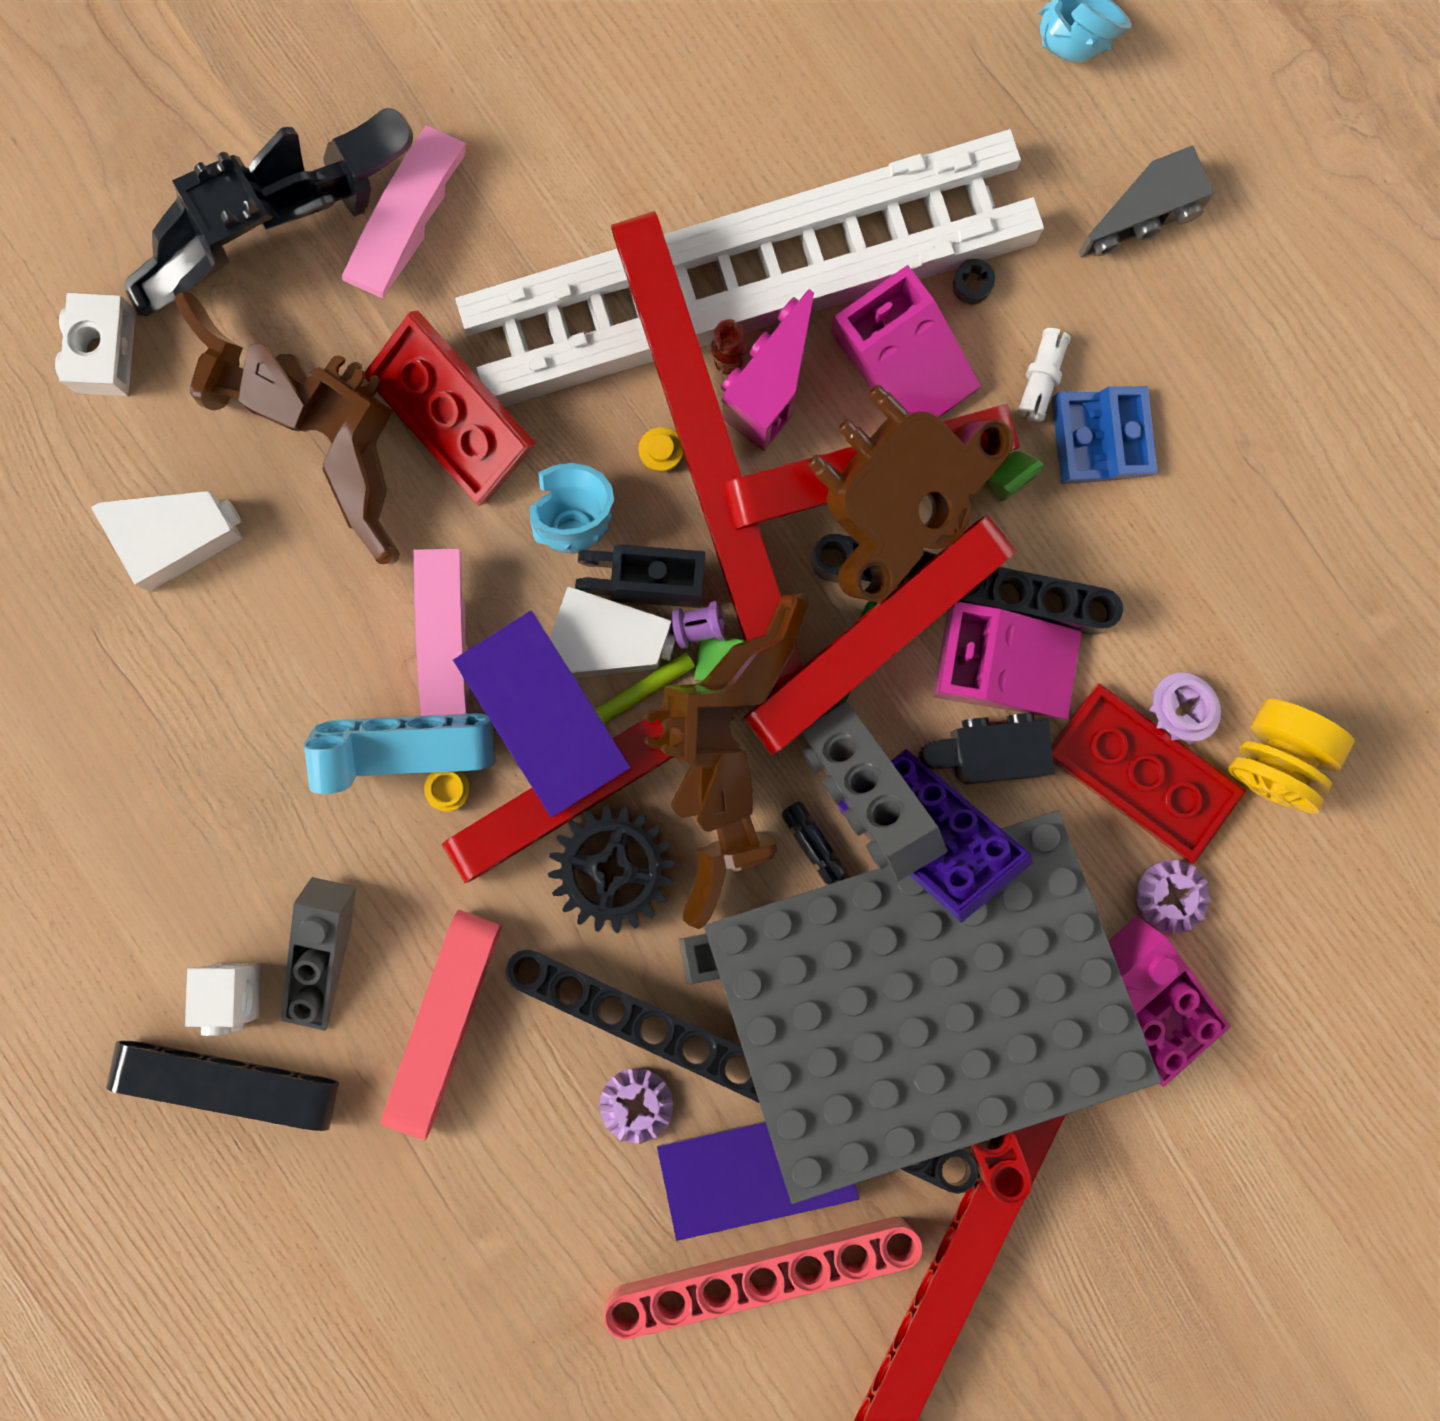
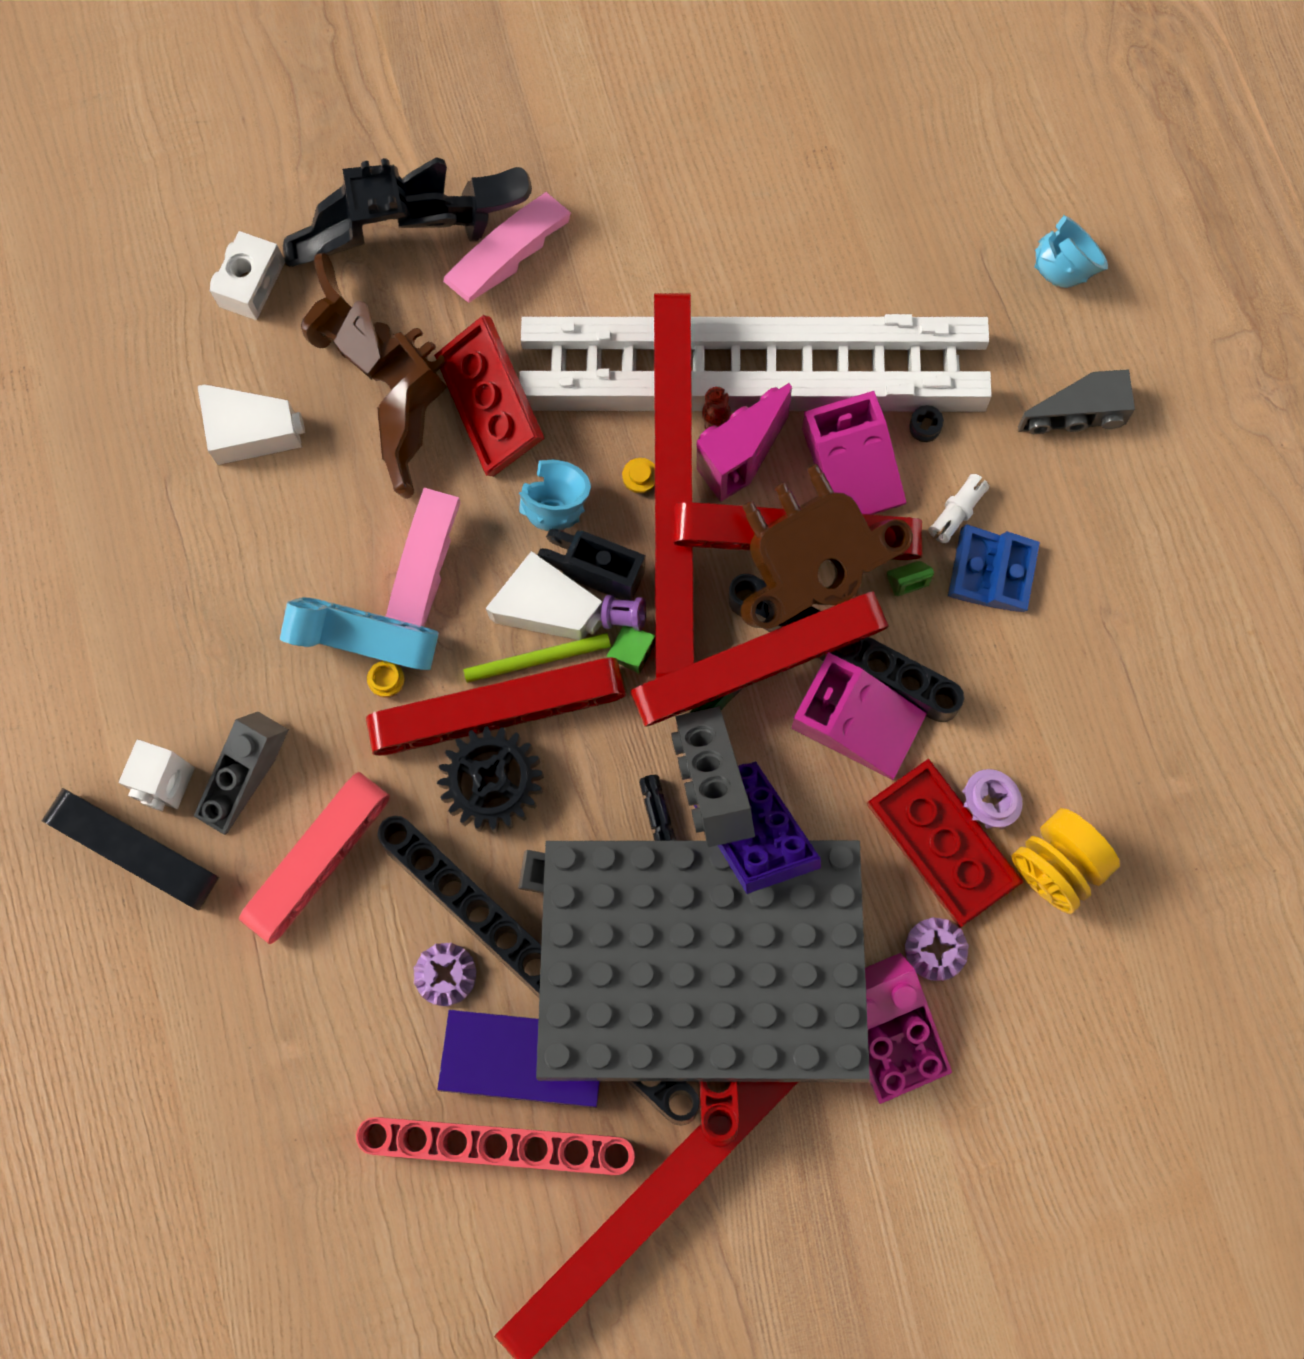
camera: 25 degrees right, 10 degrees down
(541, 714) = (476, 638): dark purple tile -> none
(719, 778) = (596, 735): reddish brown piece -> none
(994, 751) = (824, 783): black hinge -> none

